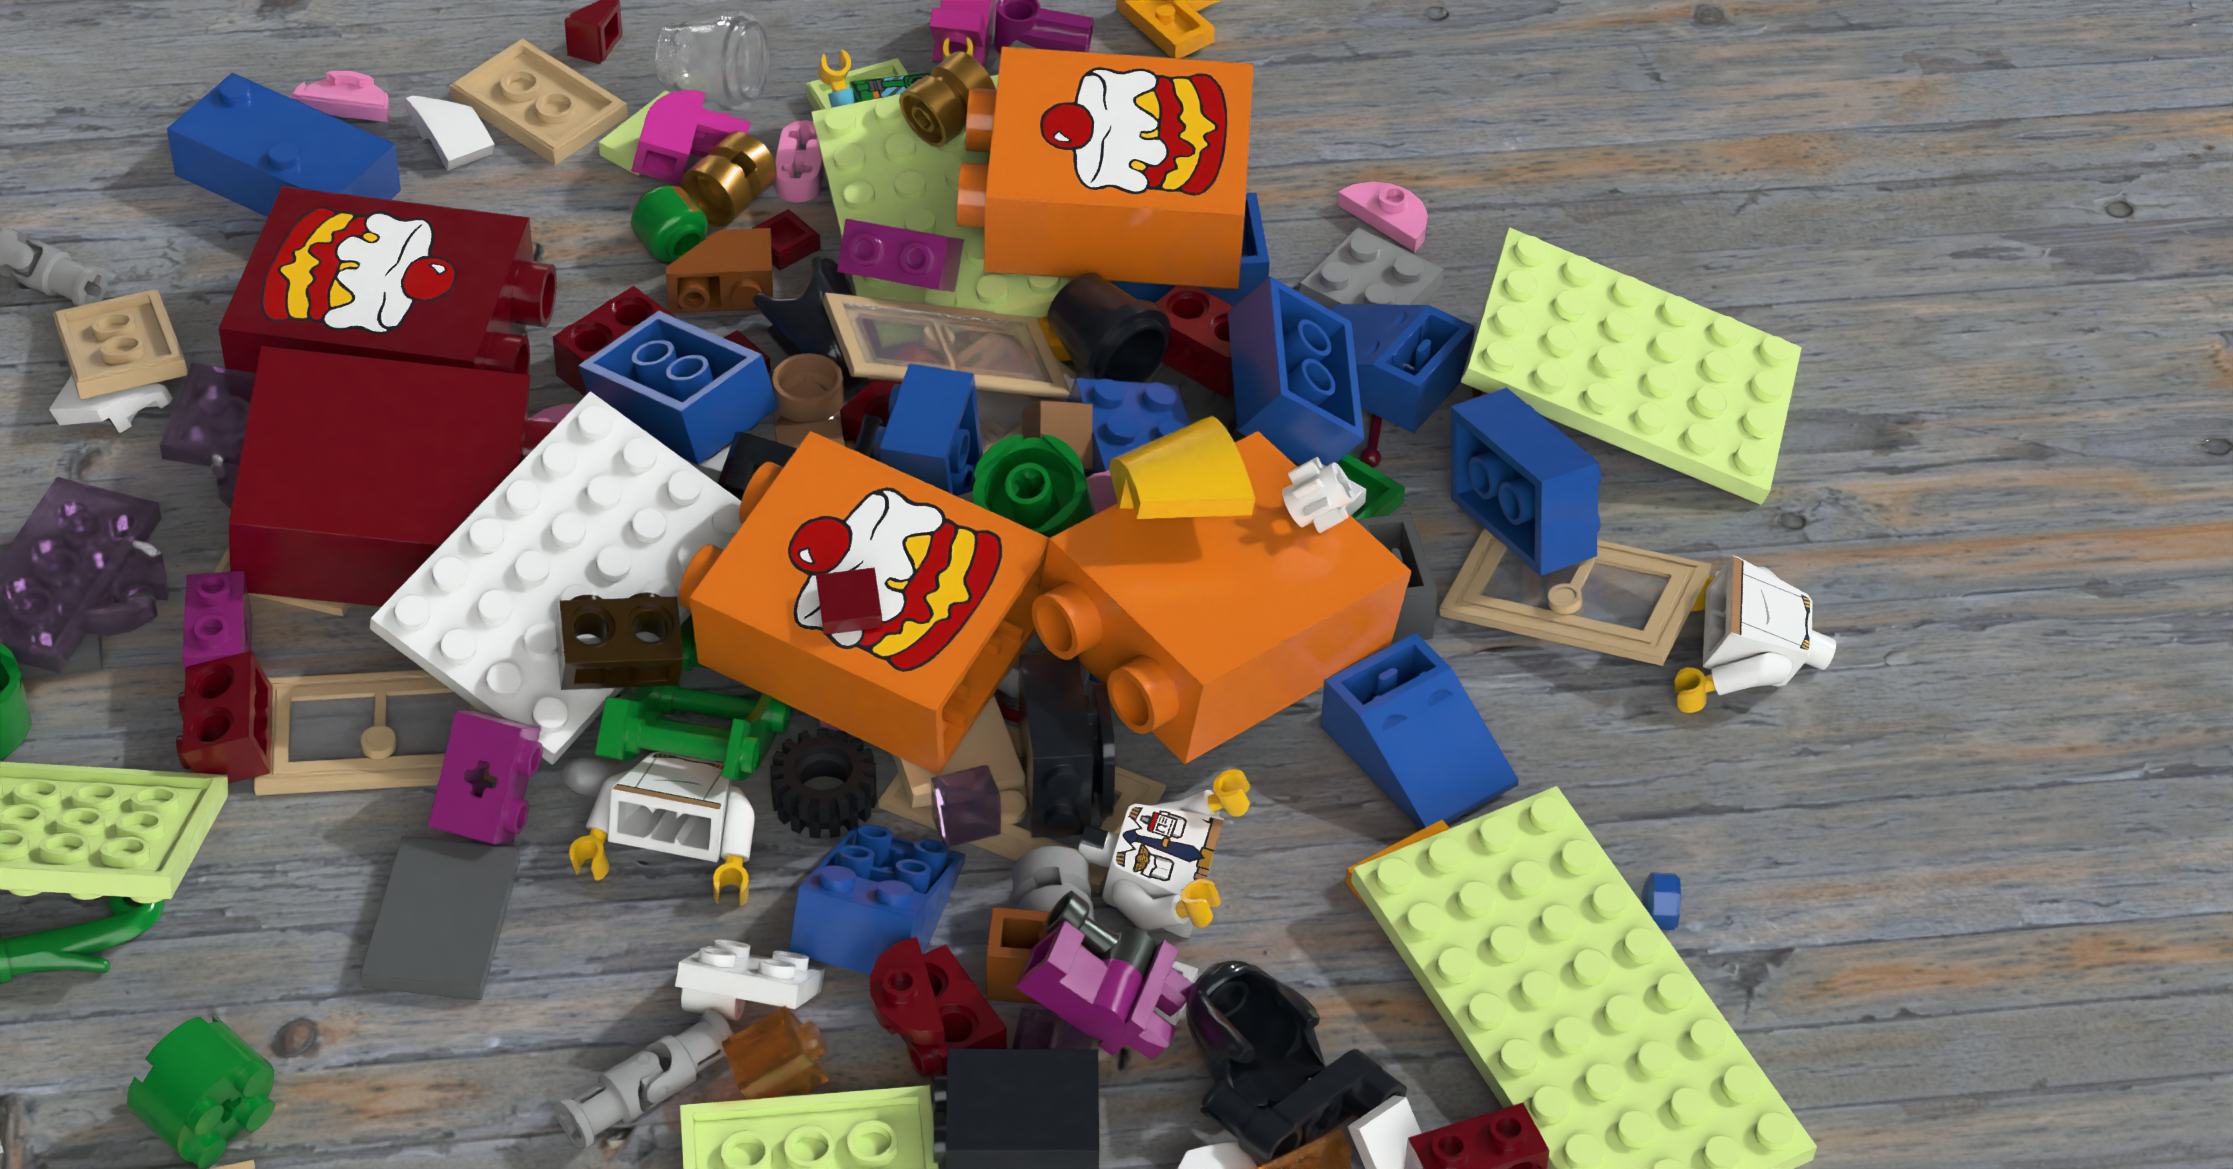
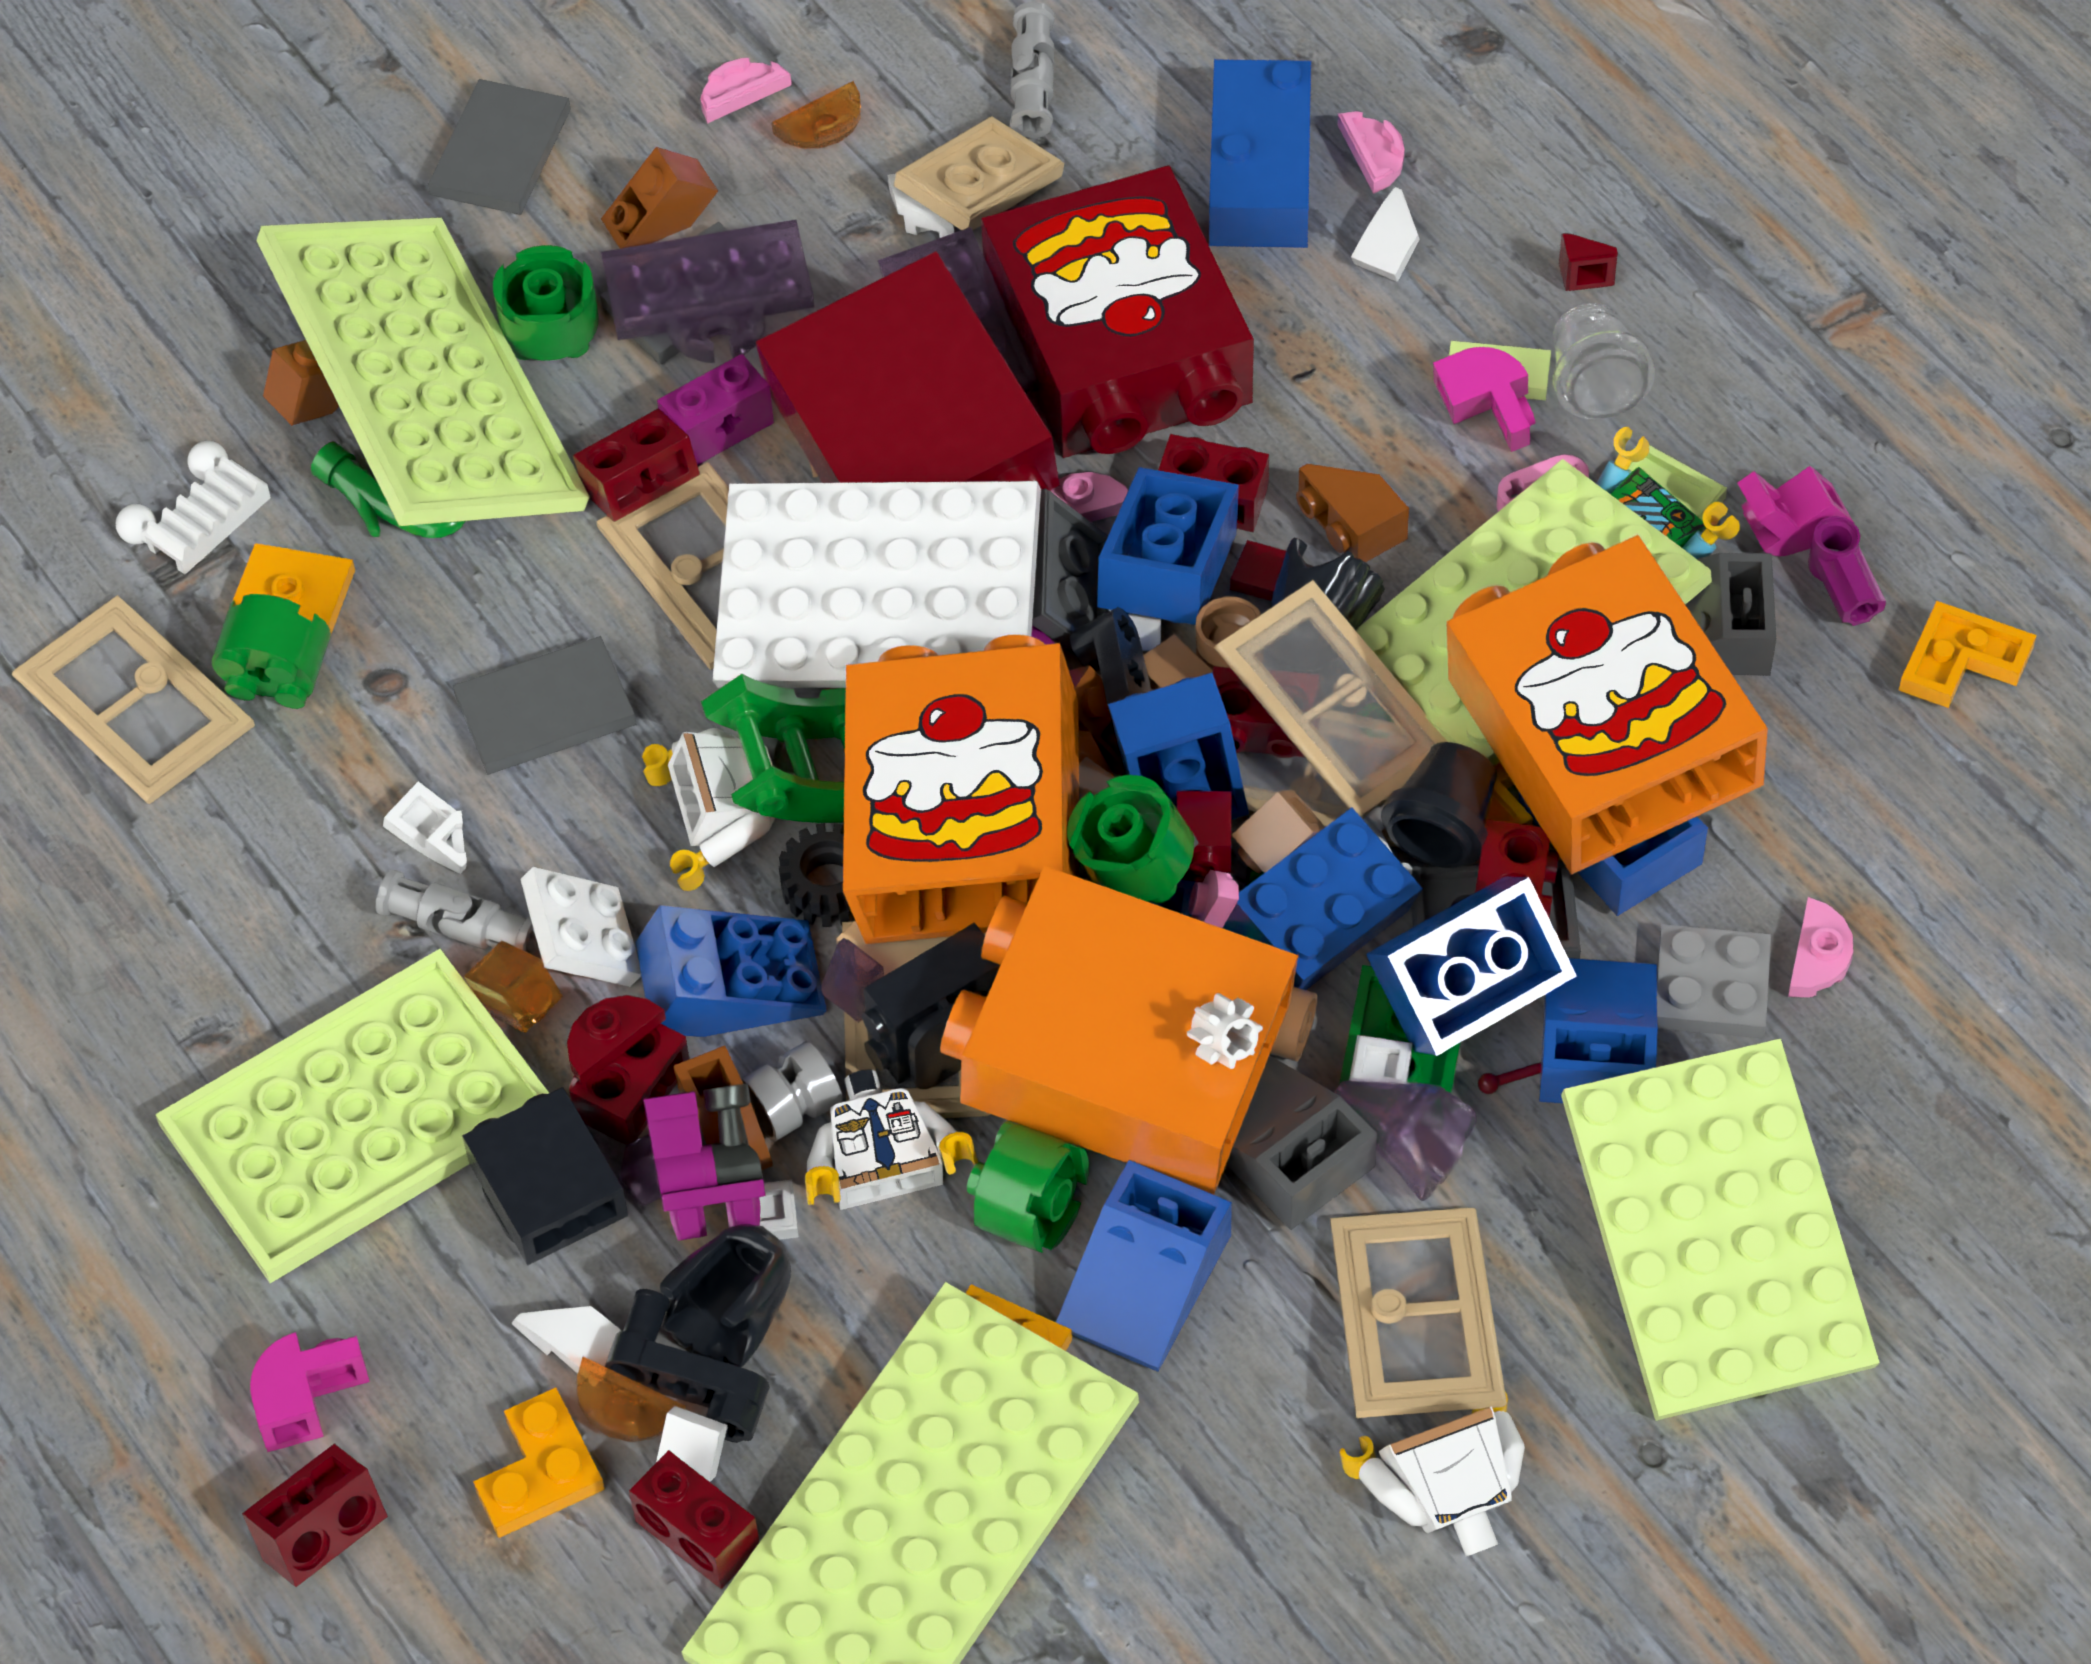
camera: 65 degrees right, 10 degrees up
(99, 1063) = (303, 577): none -> light orange plate
(467, 801) = (665, 650): magenta brick -> none
(516, 1065) = (429, 827): none -> white slope
(539, 101) = (1478, 275): tan tile -> none
(621, 656) = (807, 655): dark brown brick -> none
(668, 222) = (1378, 439): green head -> none
(730, 177) = (1446, 445): pearl gold wheel -> none
(790, 239) = (1438, 527): dark red tile -> none
(849, 601) = (901, 769): dark red tile -> none
(900, 255) = (1401, 608): magenta brick -> none
(939, 102) = (1595, 524): pearl gold wheel -> none
(1184, 475) = (1168, 918): yellow slope -> none
(1291, 771) = (1028, 1187): none -> green brick
(1406, 486) = (1416, 1127): none -> clear purple hat
(1524, 481) = (1484, 1204): blue brick -> none
(1662, 899) = (1081, 1538): blue tile -> none

